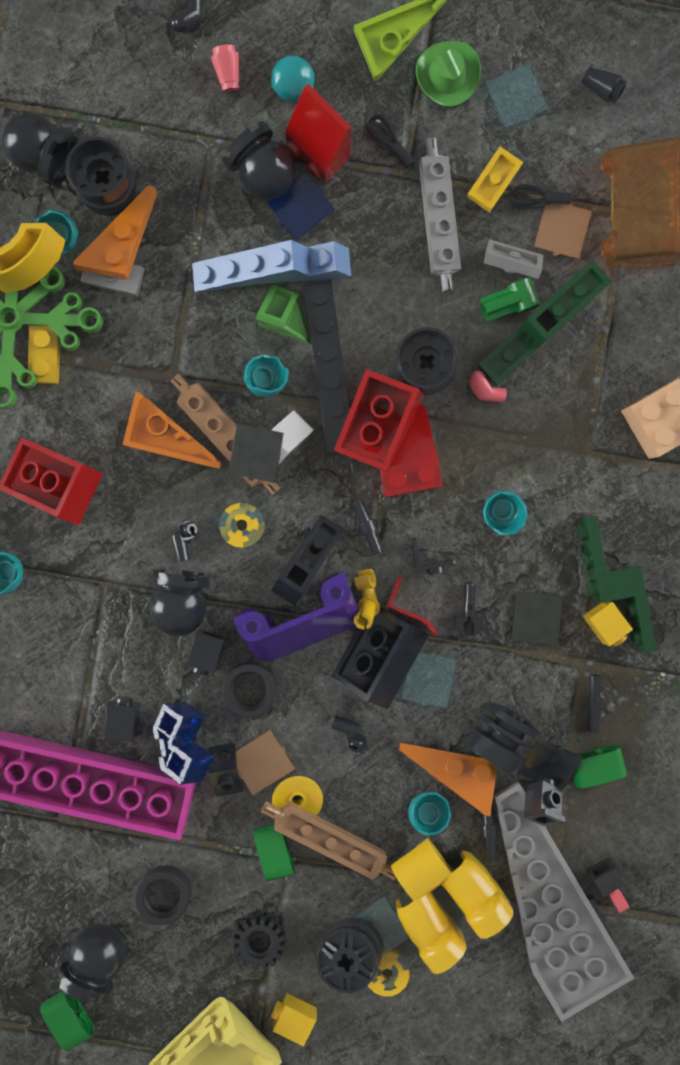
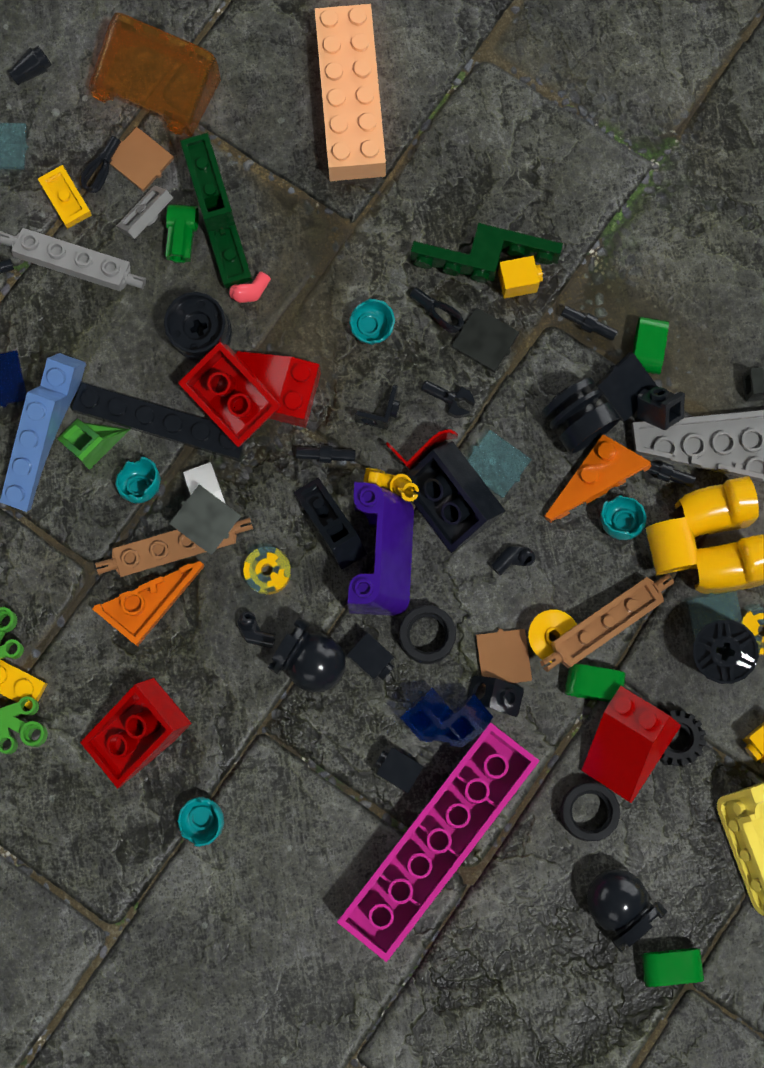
camera: 65 degrees left, 10 degrees down
(232, 906) = (628, 743): none -> red slope
(545, 555) = (430, 304): none -> black piece

